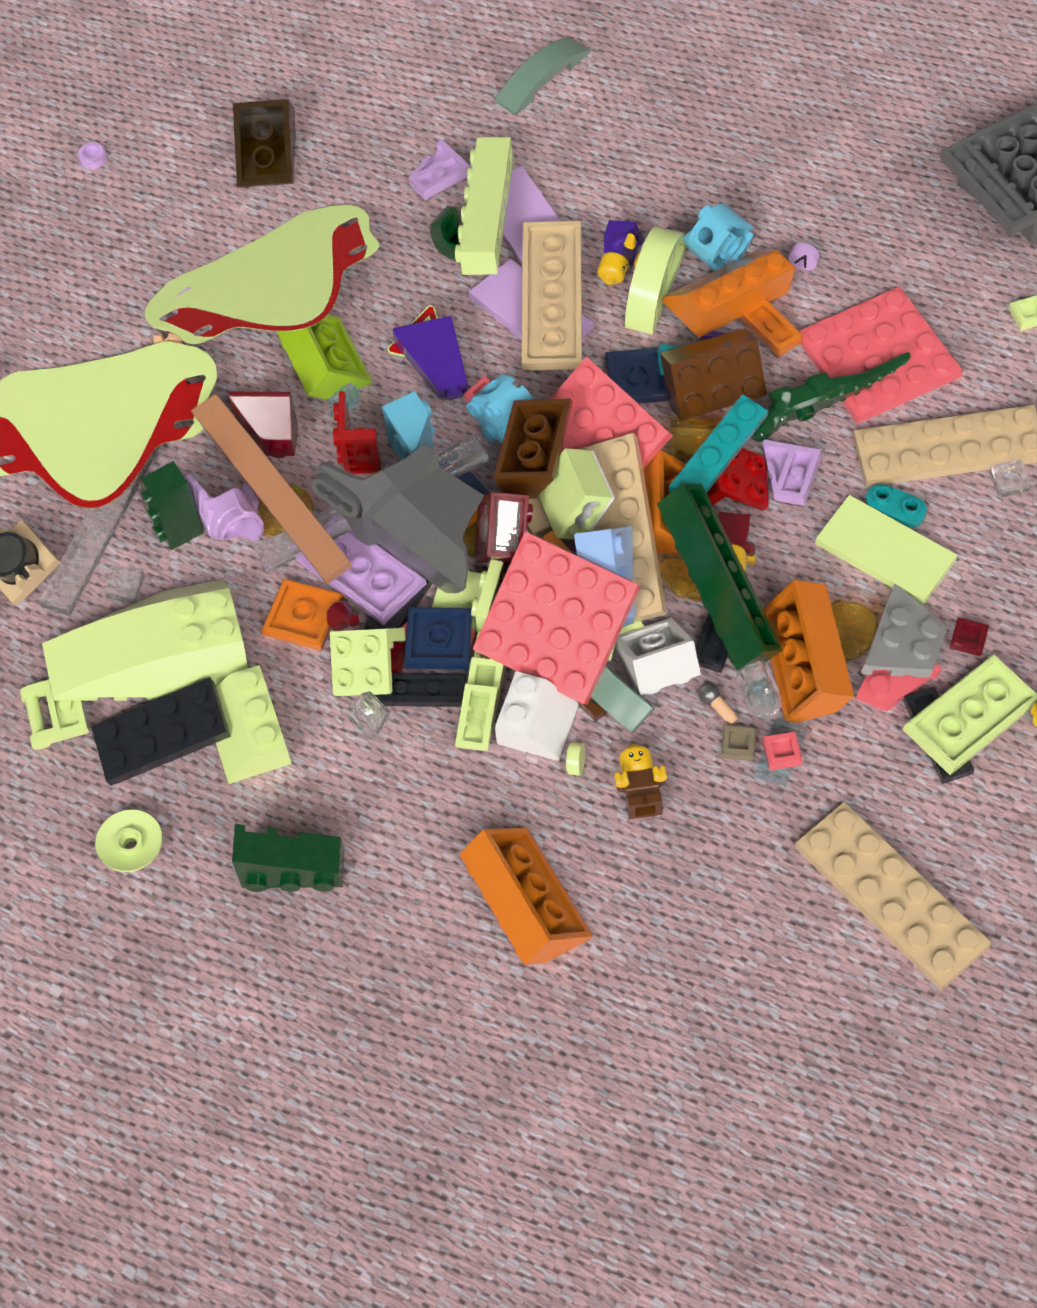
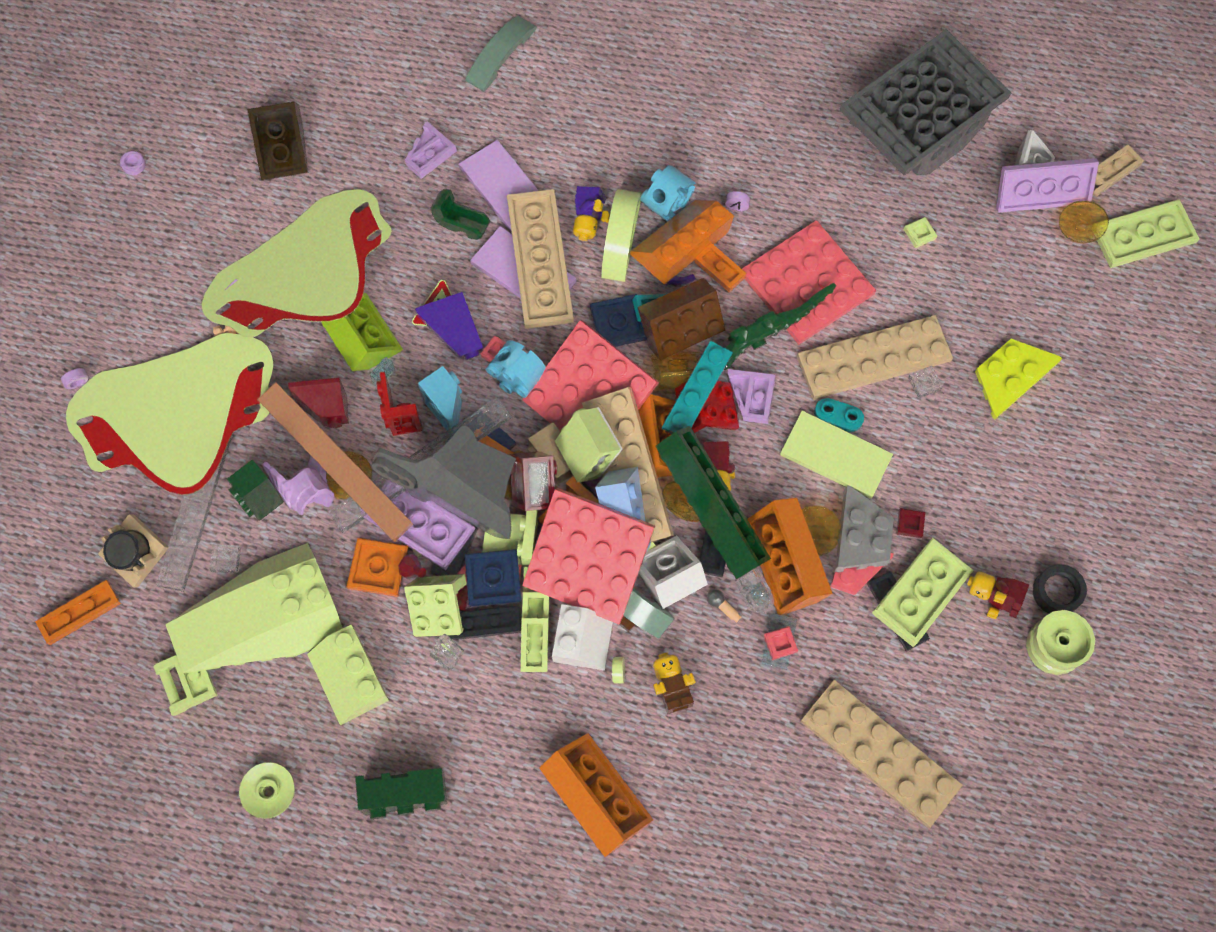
camera: 15 degrees left, 10 degrees up
(160, 731) = (277, 689): black plate -> none
(485, 207) = (474, 184): yellowish green brick -> none
(532, 445) = (548, 406): reddish brown slope -> none
(738, 742) = (744, 637): dark tan tile -> none

